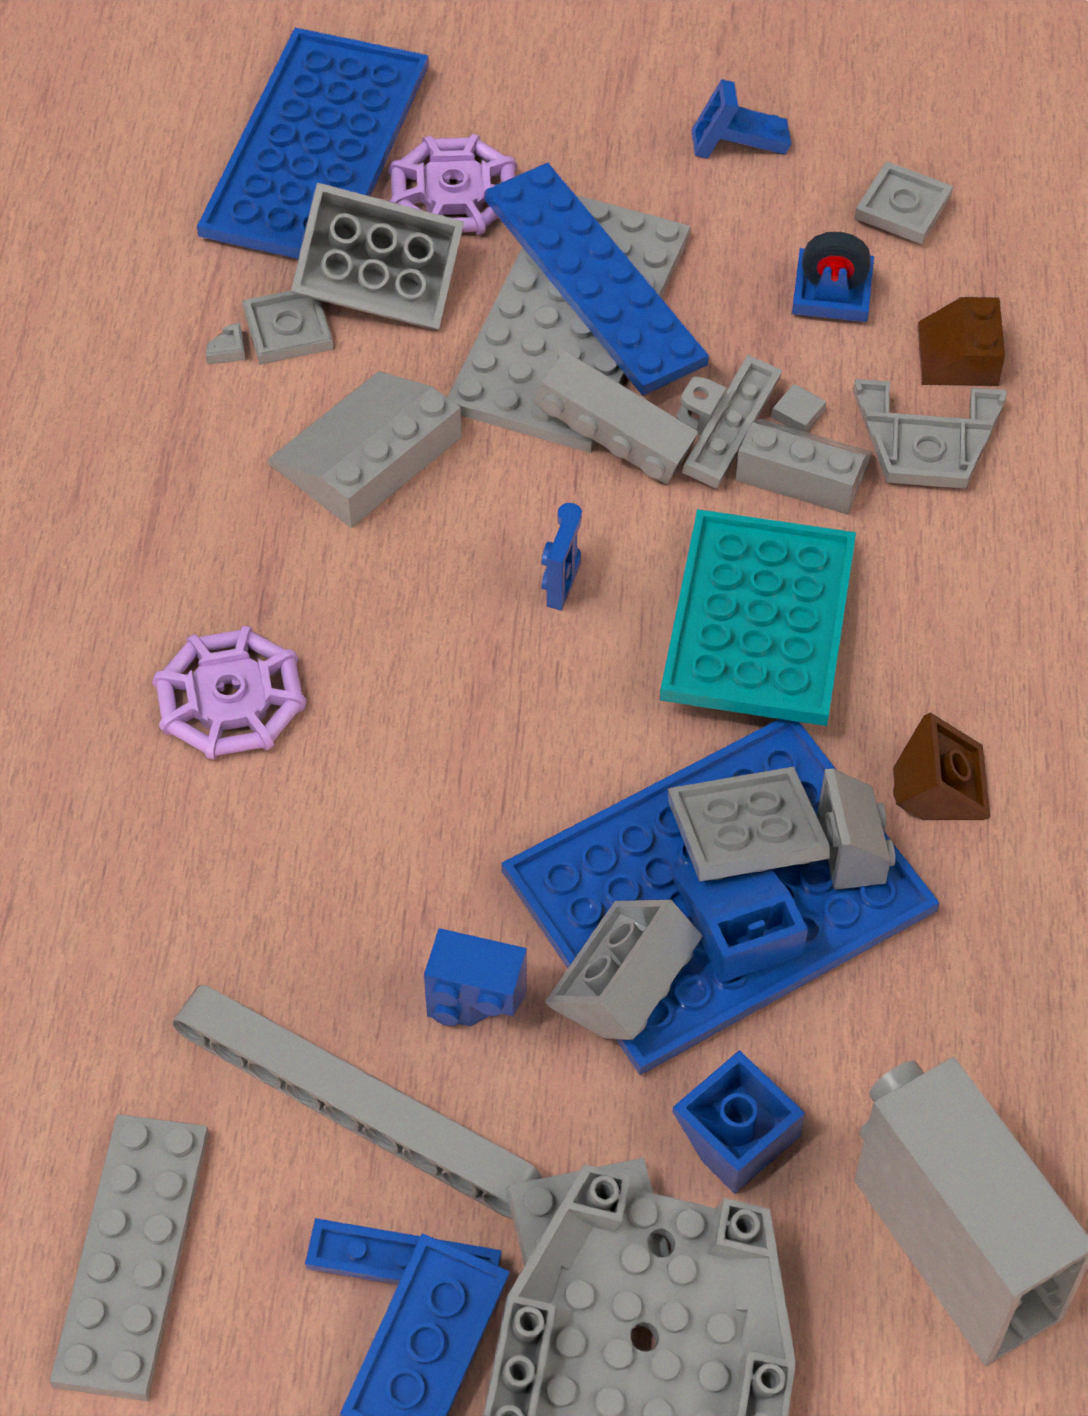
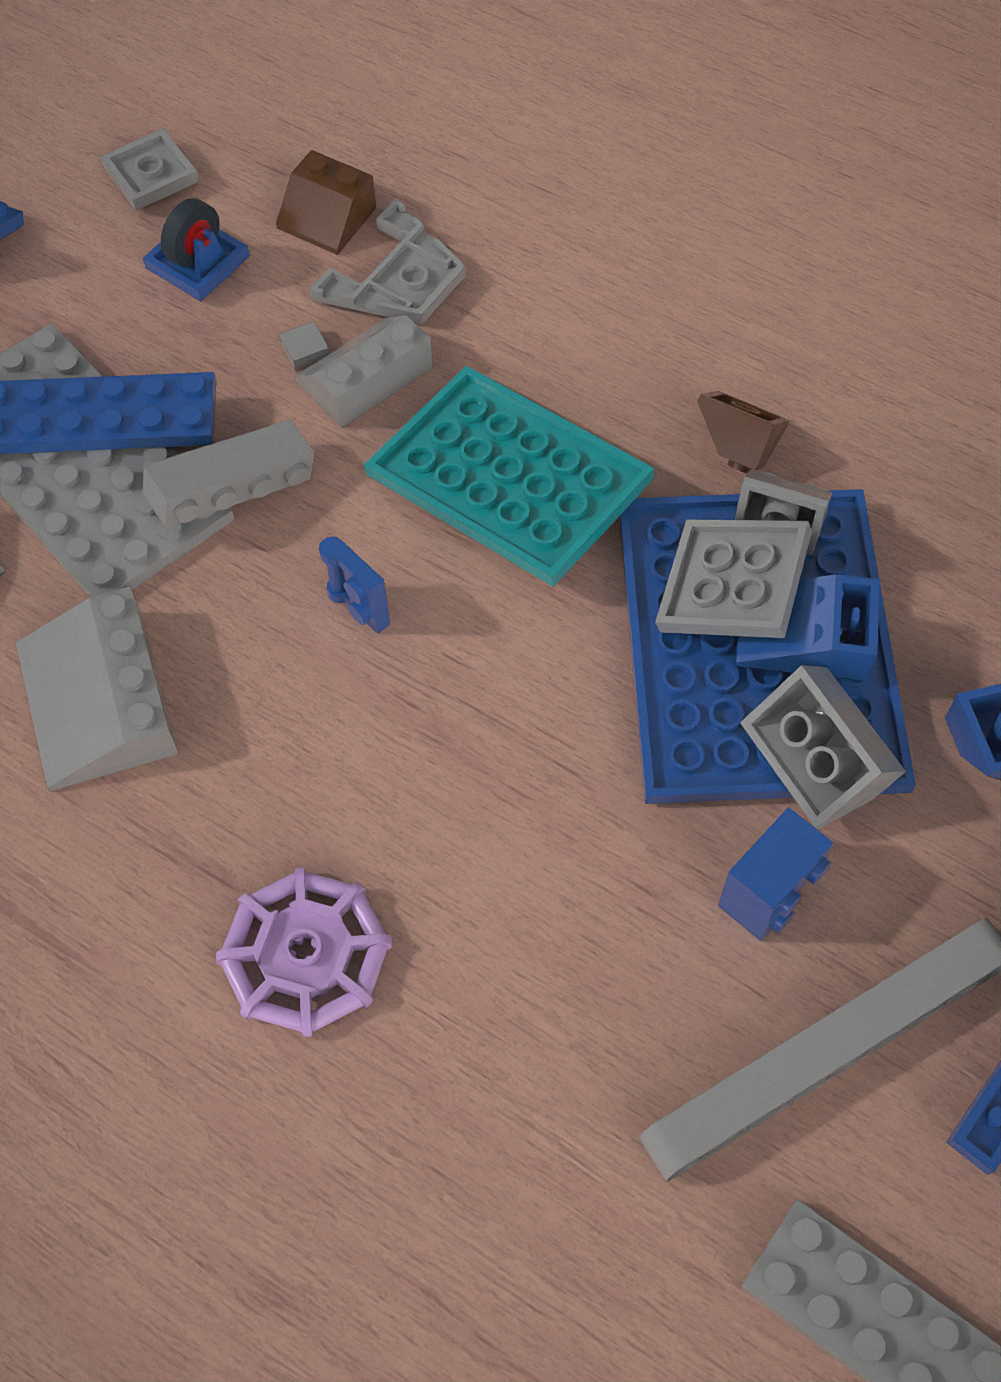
camera: 60 degrees left, 5 degrees up
(724, 417) = (279, 396): light grey plate -> none

